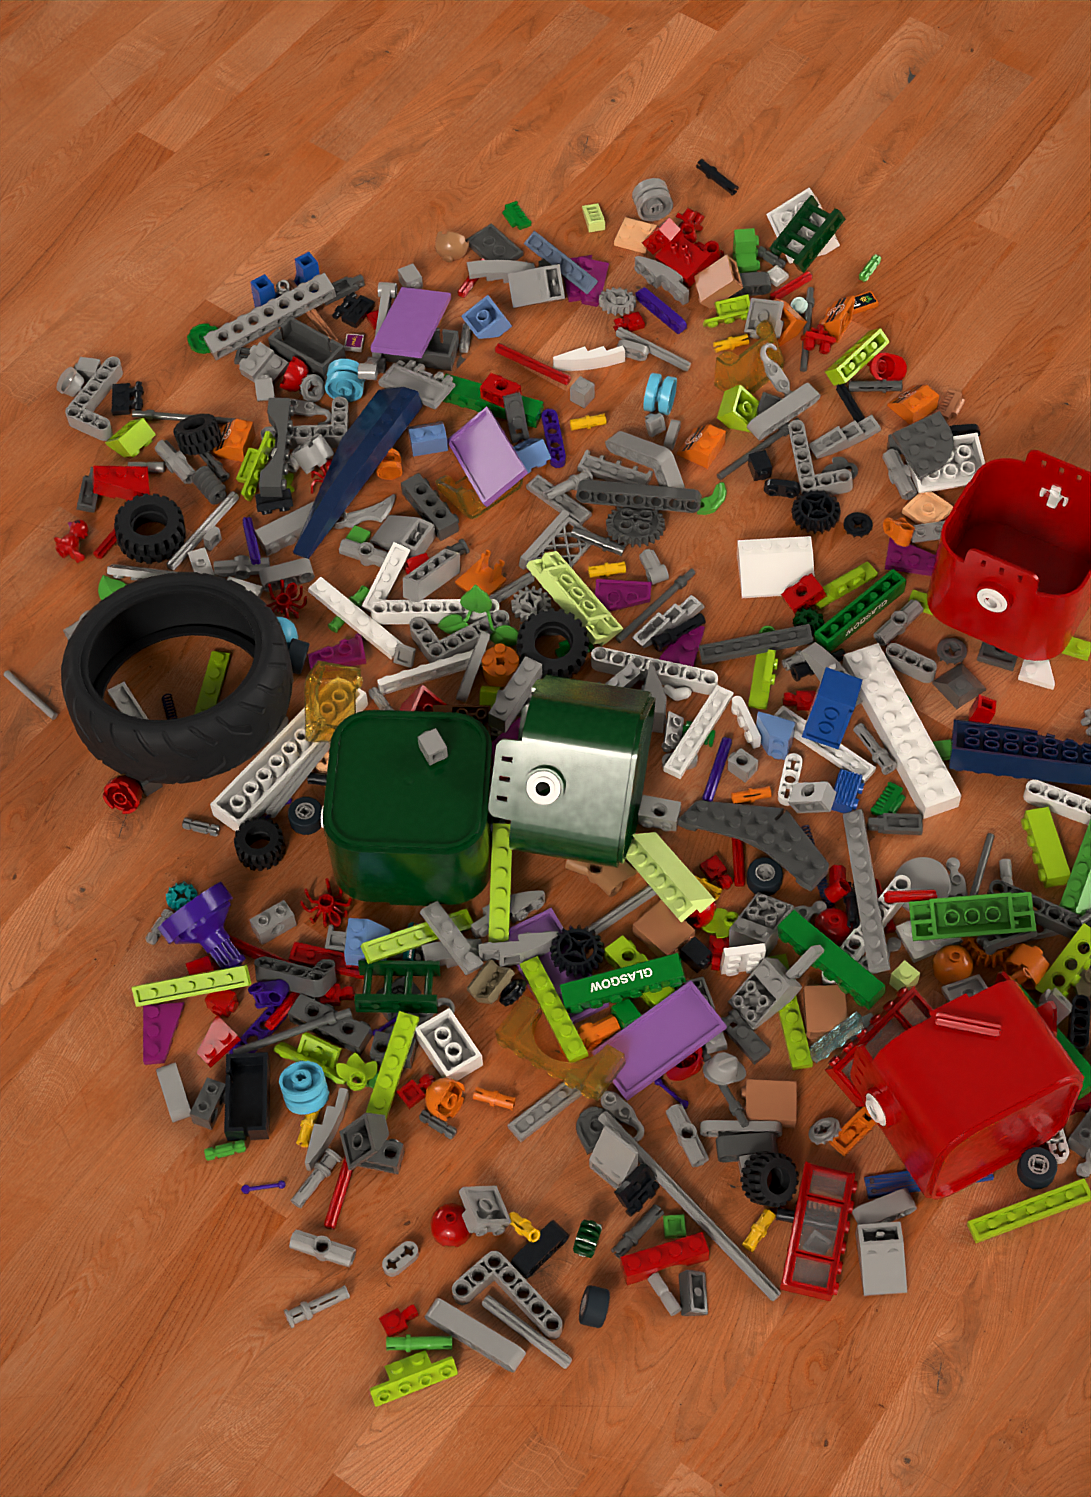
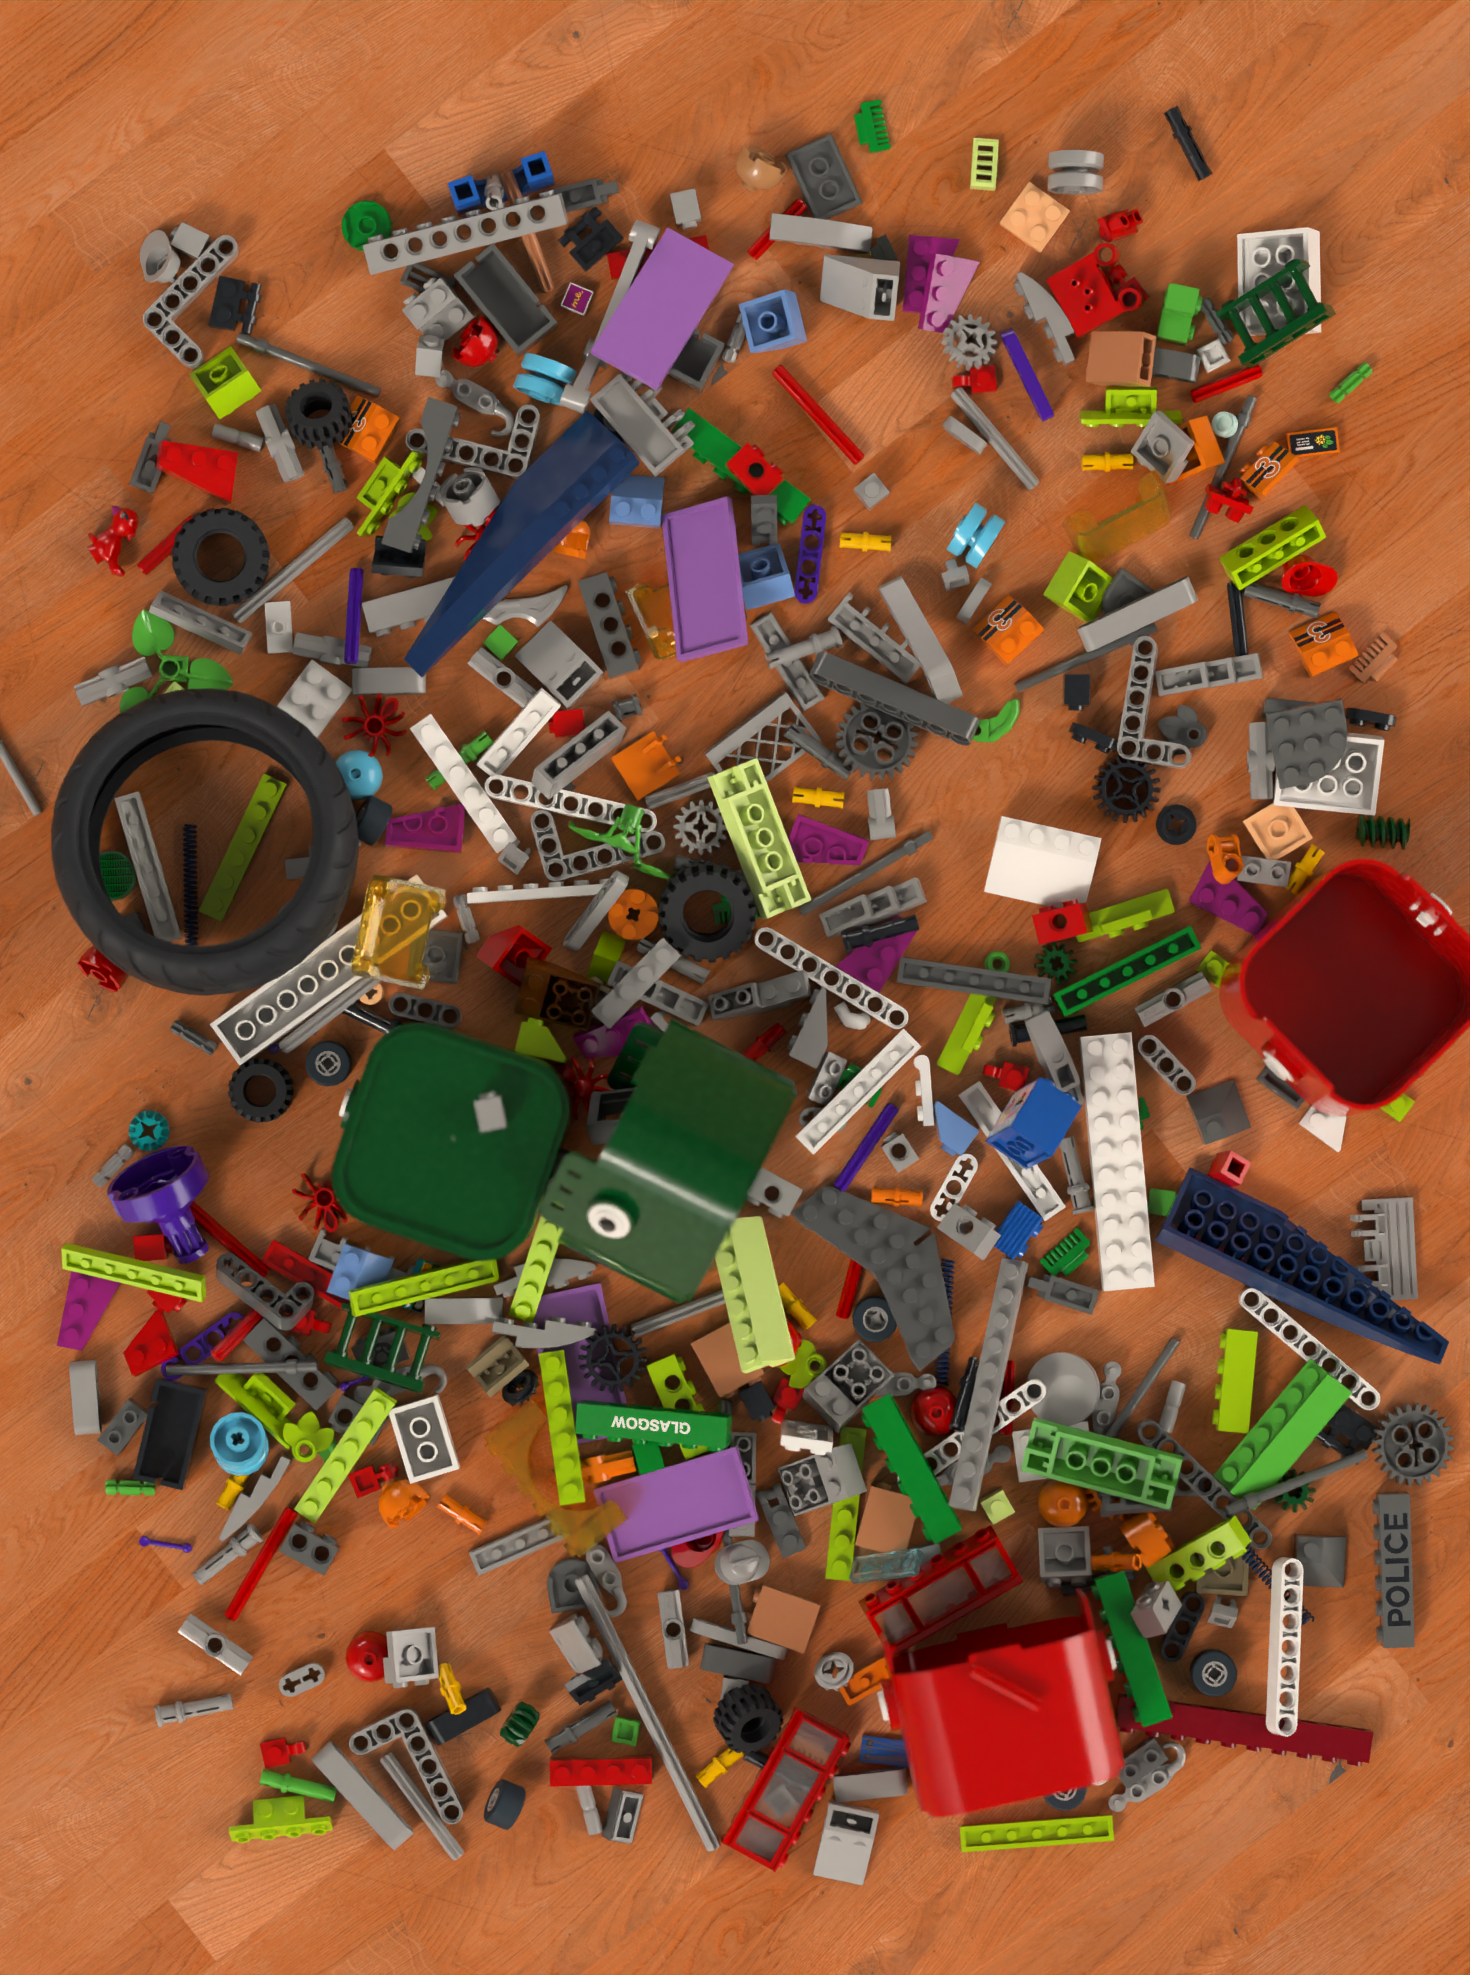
camera: 10 degrees right, 30 degrees up
(209, 485) = (316, 499): dark grey piece -> none
(212, 538) = (303, 591): light grey tile -> none
(269, 993) = (226, 1305): dark purple piece -> none
(273, 922) = (253, 1205): light grey brick -> none
(317, 392) = (504, 374): light grey gear -> none
(363, 1138) = (293, 1539): dark grey slope -> none
(438, 1124) = (398, 1539): dark grey axle -> none
(451, 938) = (464, 1300): light grey plate -> none
(568, 268) = (908, 248): sand blue tile -> none
(586, 360) = (888, 431): white slope -> none
(661, 236) = (1065, 249): red brick -> none
(715, 869) = (817, 1286): red plate -> none
(774, 371) = (1146, 551): light grey piece -> none
(804, 962) = (877, 1470): light grey tile -> none
(838, 885) = (958, 1364): red piece -> none
(909, 895) = (1037, 1413): red axle -> none
(956, 645) = (1234, 1069): dark grey gear -> none
(1049, 1014) = (1129, 1640): red tile -> none

